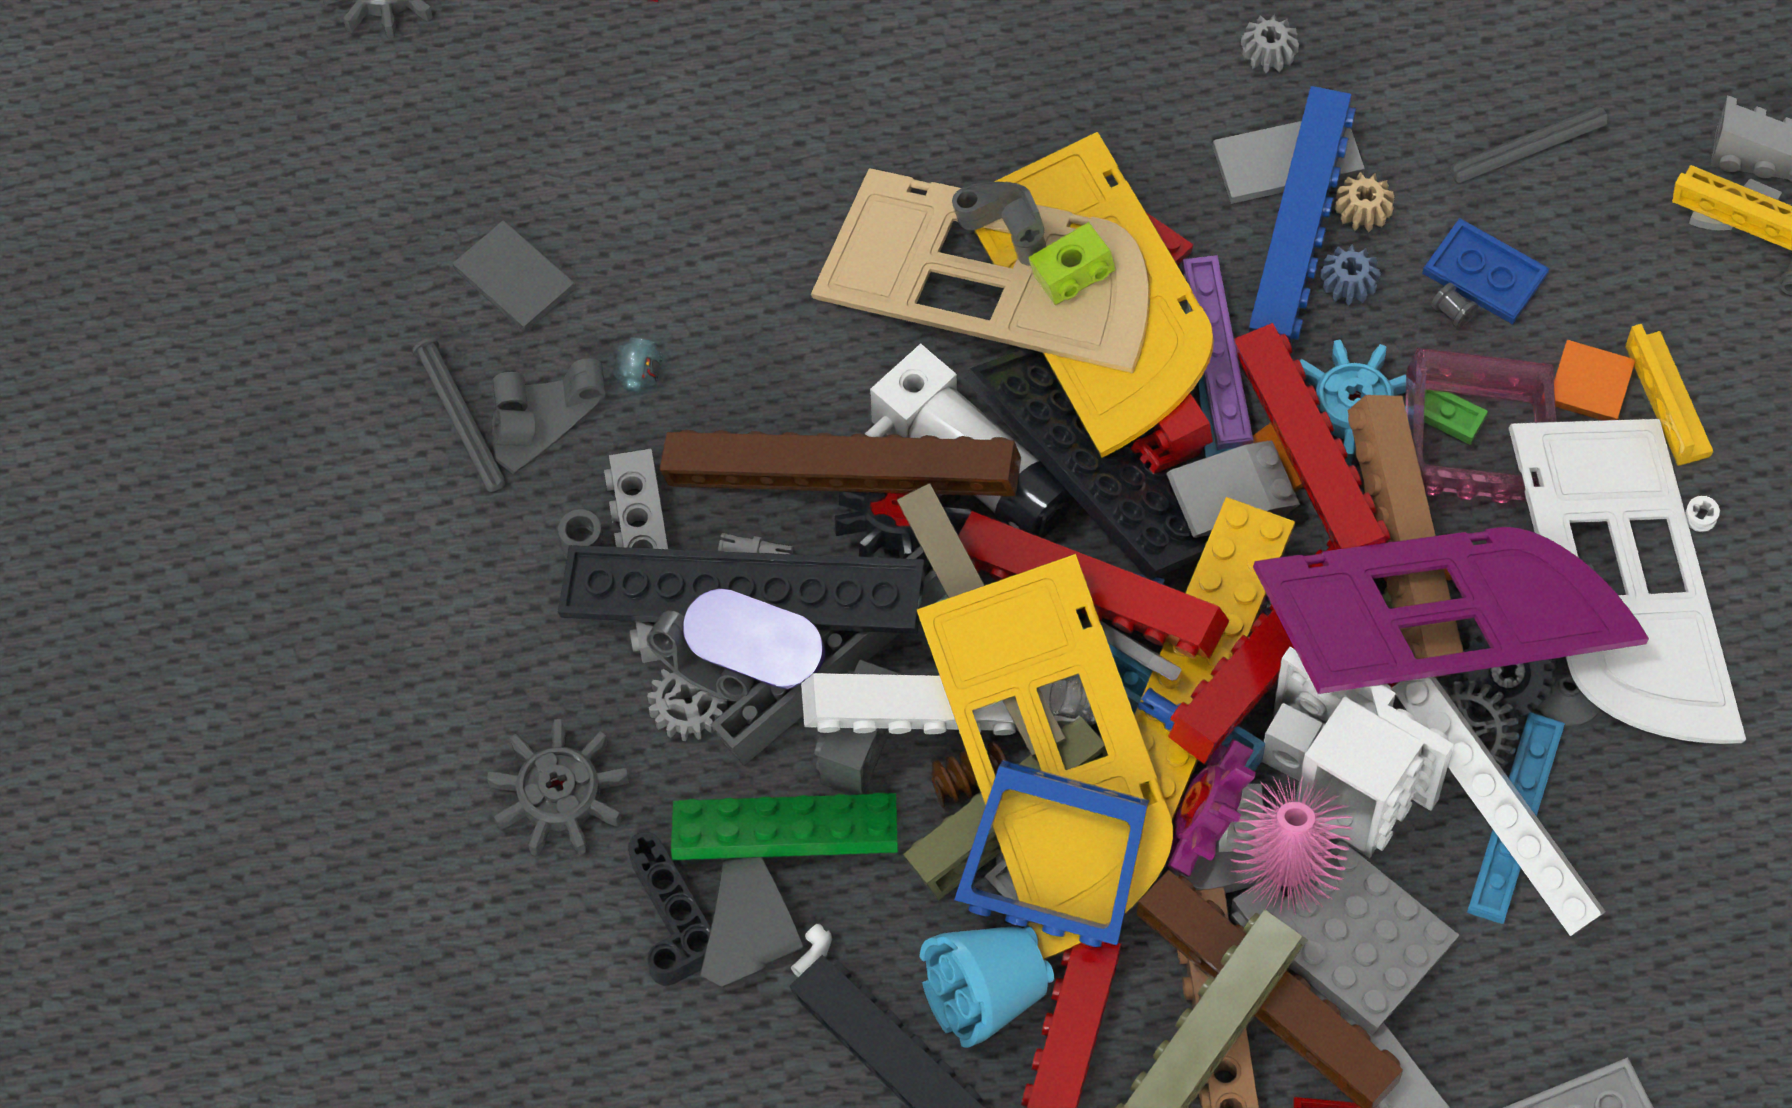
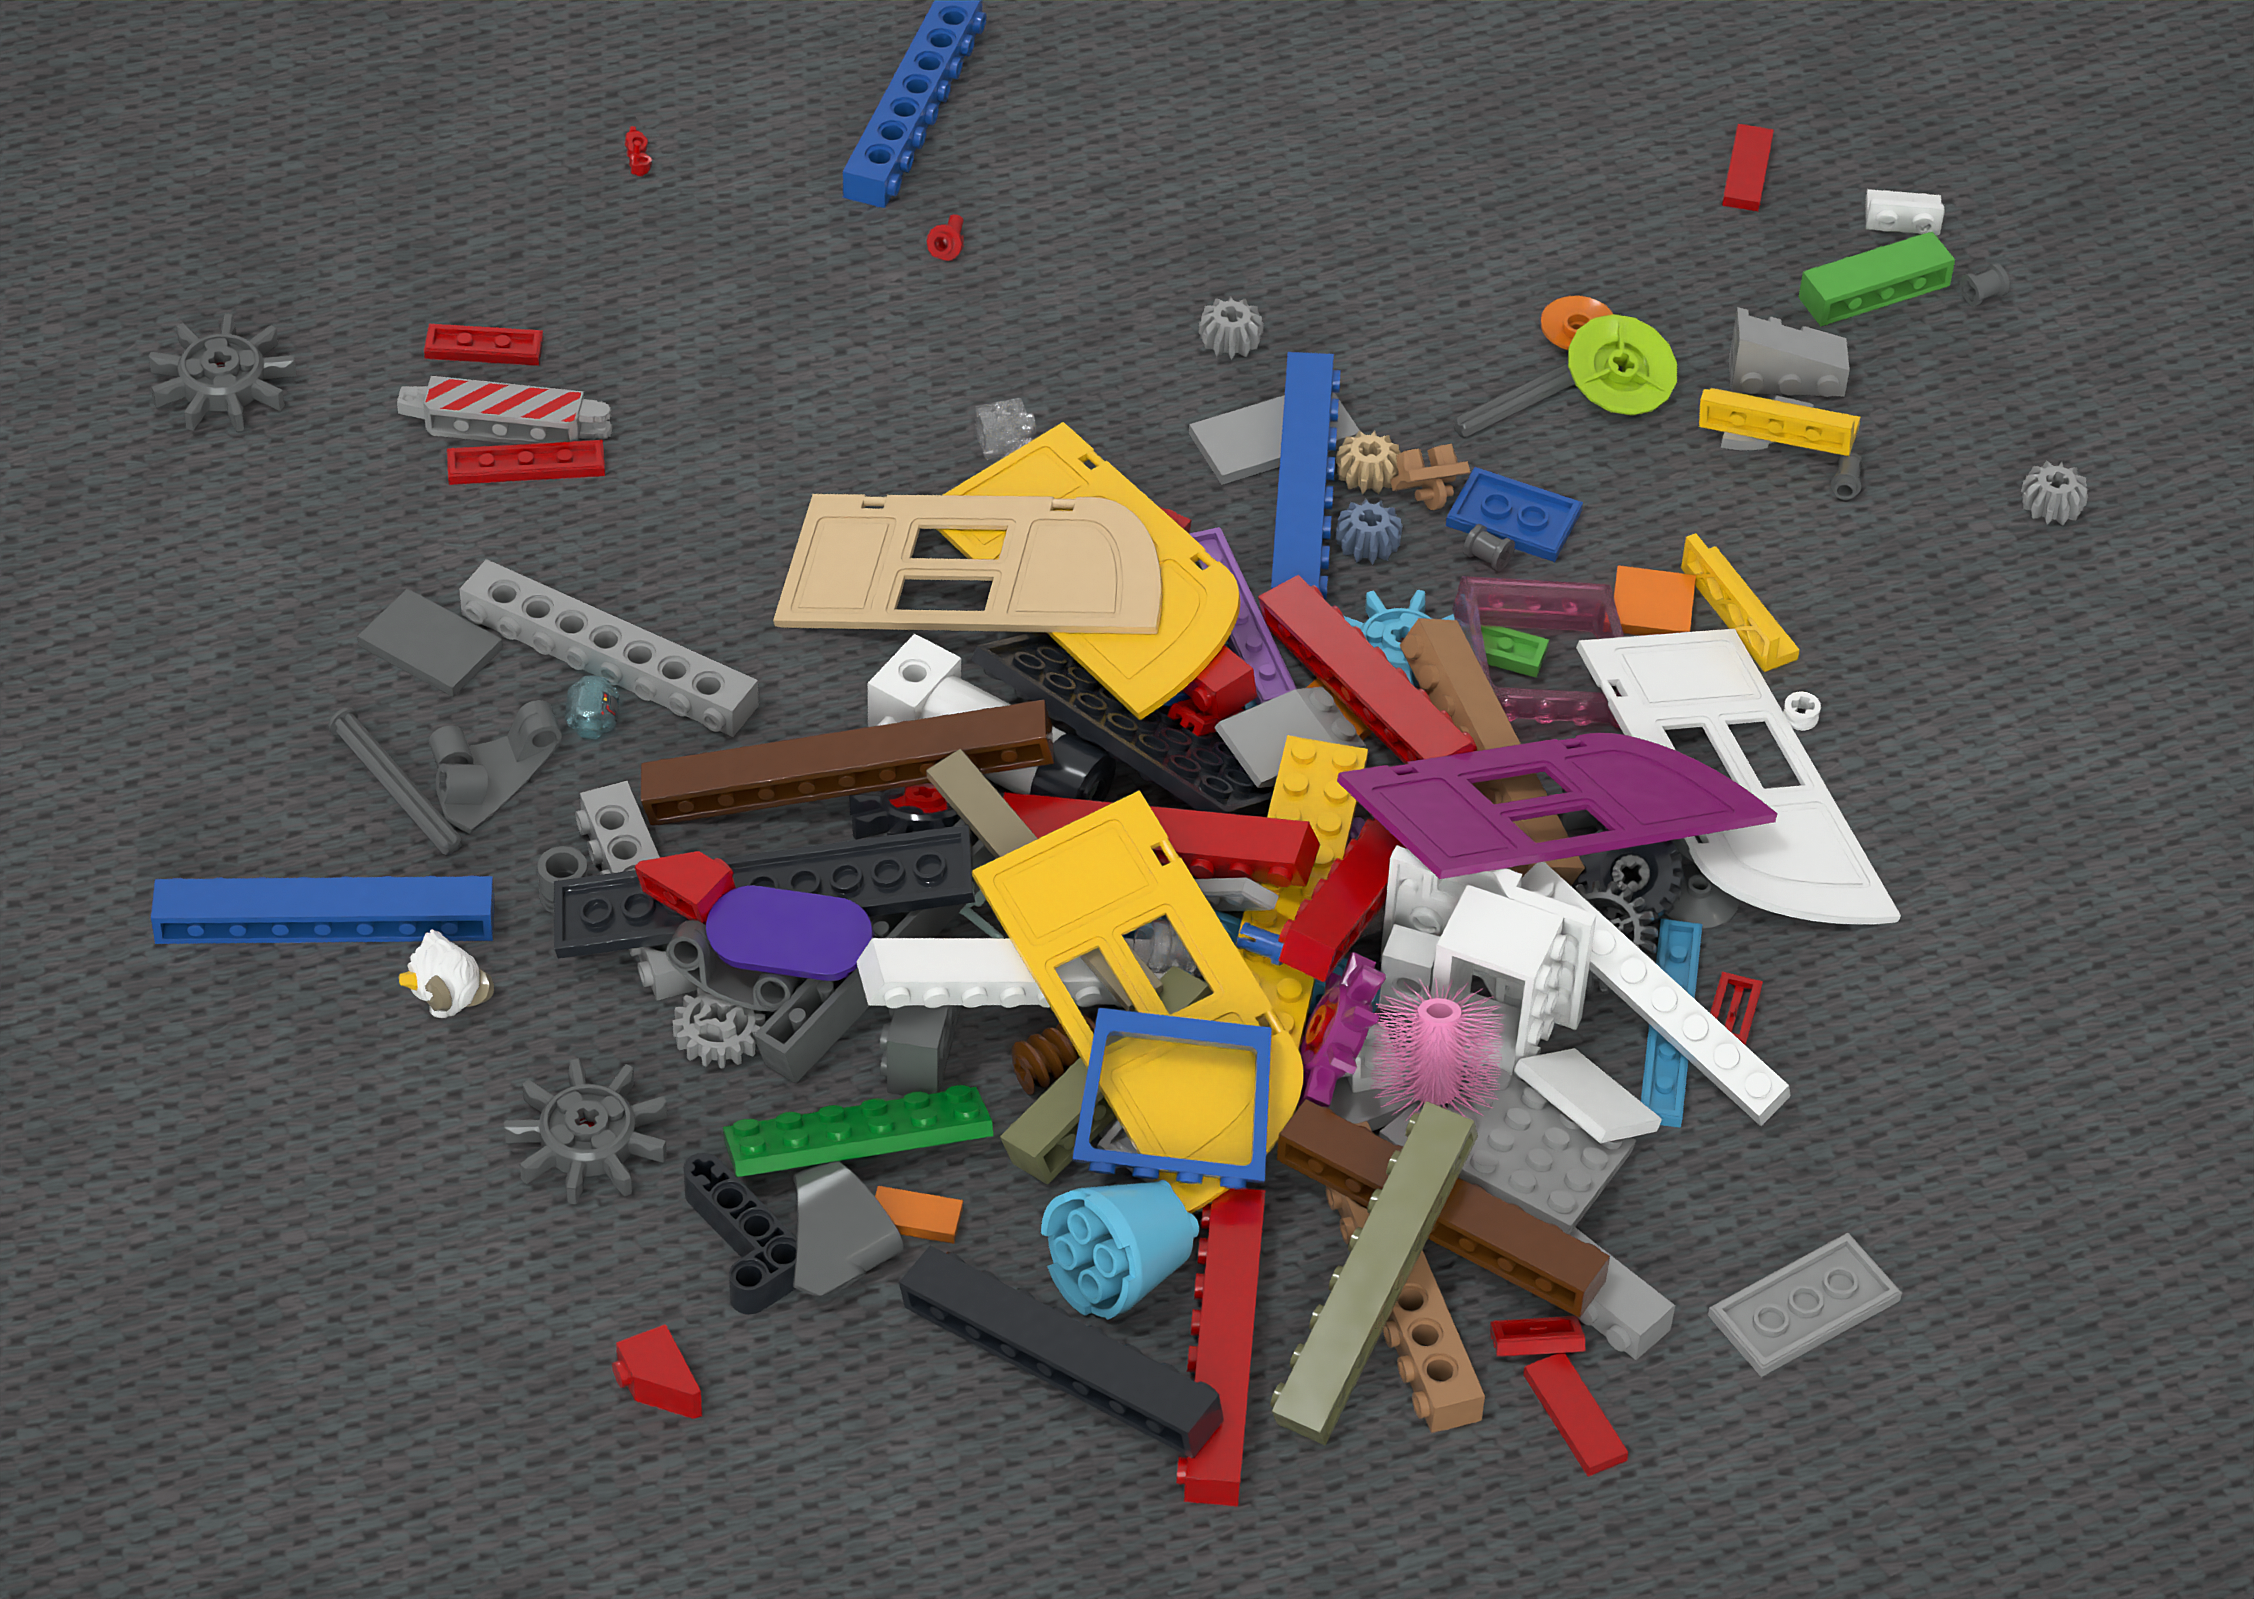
camera: 15 degrees left, 15 degrees down
(376, 535) = (322, 909): none -> blue brick
(465, 620) = (446, 977): none -> white hair
(572, 1035) = (657, 1373): none -> red slope
(577, 231) = (609, 648): none -> light grey brick
(618, 51) = (504, 411): none -> light grey hinge
(628, 102) = (525, 462): none -> red tile
(676, 576) = (686, 882): none -> red slope
(814, 906) = (921, 1213): none -> orange tile
(821, 942) = (922, 1238): white arm -> none
(989, 201) = (988, 487): dark grey panel -> none
(1047, 126) = (1003, 427): none -> clear brick
(1079, 248) = (1066, 537): lime brick -> none
(1401, 222) = (1443, 470): none -> medium nougat hips
(1424, 888) = (1587, 1095): none -> white tile
(1561, 840) = (1741, 983): none -> red tile
(1585, 68) = (1566, 315): none -> orange dish
(1637, 131) = (1646, 360): none -> lime piece

